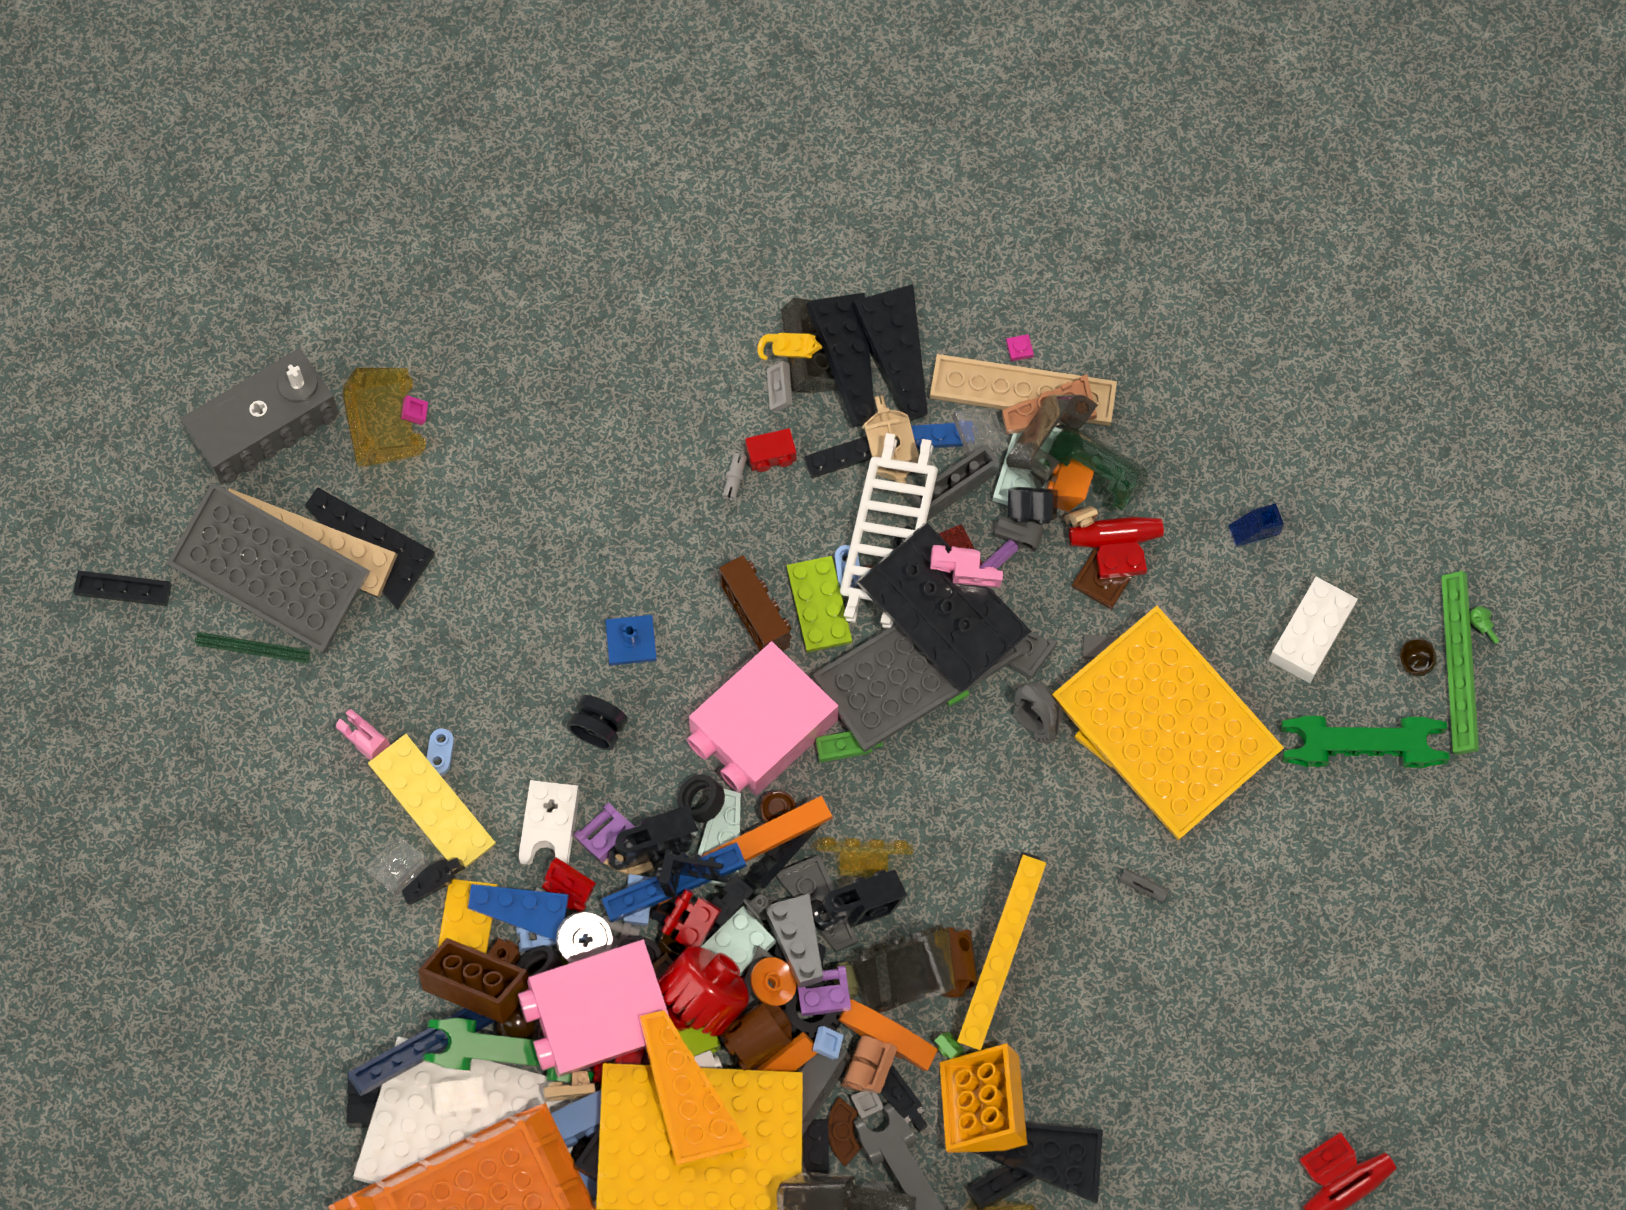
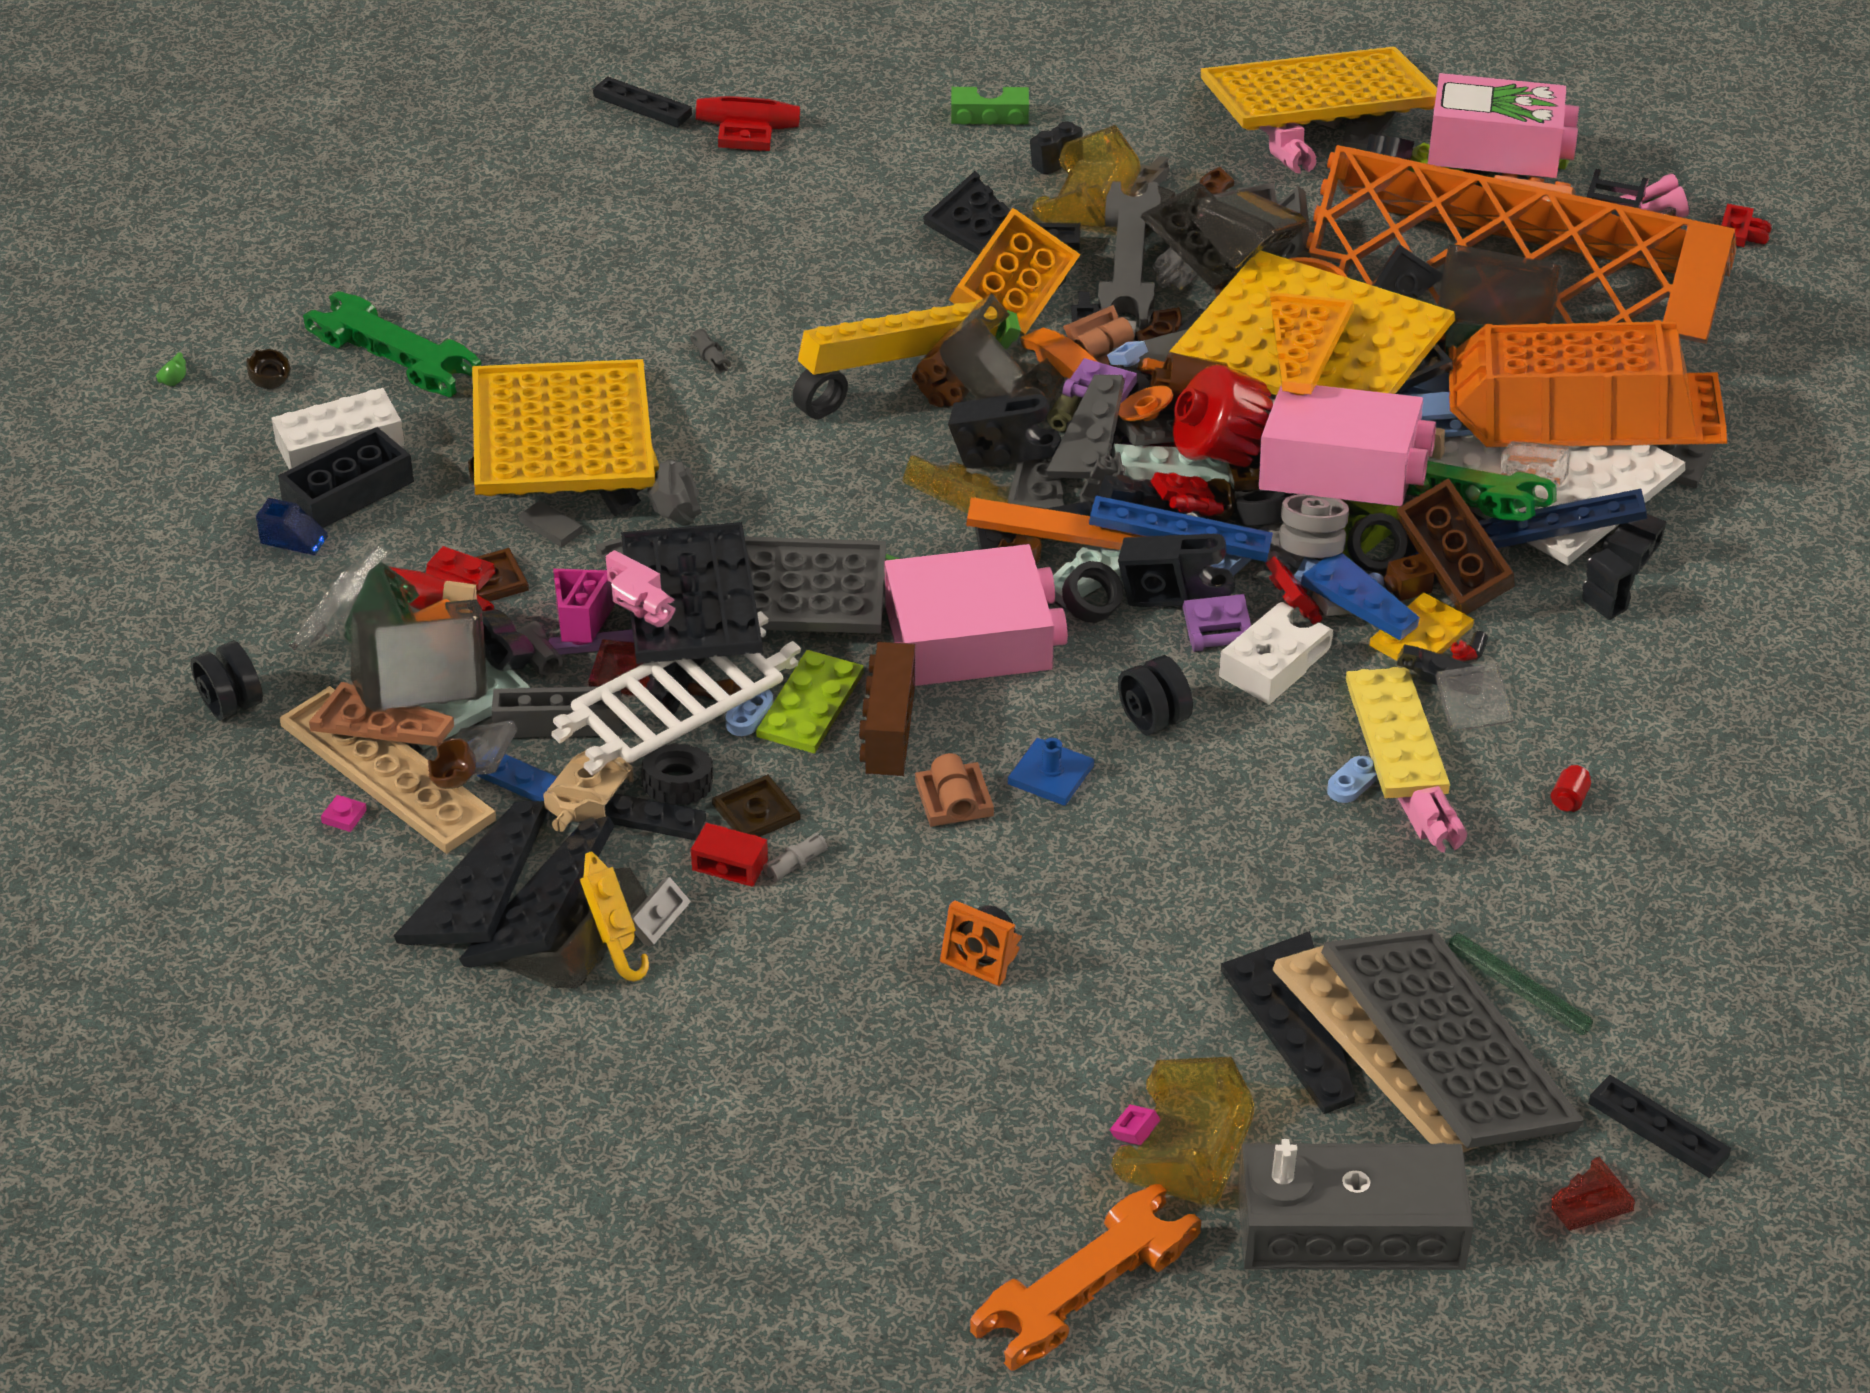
camera: 145 degrees left, 25 degrees down
(138, 516) = (1592, 1197): none -> clear red wing
(294, 823) = (1571, 788): none -> red brick
(356, 1025) = (1608, 583): none -> black brick
(393, 271) = (1041, 1308): none -> orange piece
(424, 921) = (1472, 651): none -> arm
(577, 471) = (984, 936): none -> orange piece
(674, 580) = (953, 791): none -> nougat plate
(674, 866) = (1178, 501): black plate -> none
(786, 500) = (756, 807): none -> dark brown tile
(831, 480) = (677, 788): none -> black tyre
(974, 395) = (453, 764): none -> reddish brown hair
(1020, 576) = (582, 603): none -> dark pink wedge
(1166, 375) = (226, 680): none -> black wheel
(1167, 484) = (336, 602): none -> clear plate
(1263, 587) = (348, 477): none -> black brick
(1445, 1150) = (642, 101): none -> black plate
(1460, 663) = (231, 353): bright green plate -> none

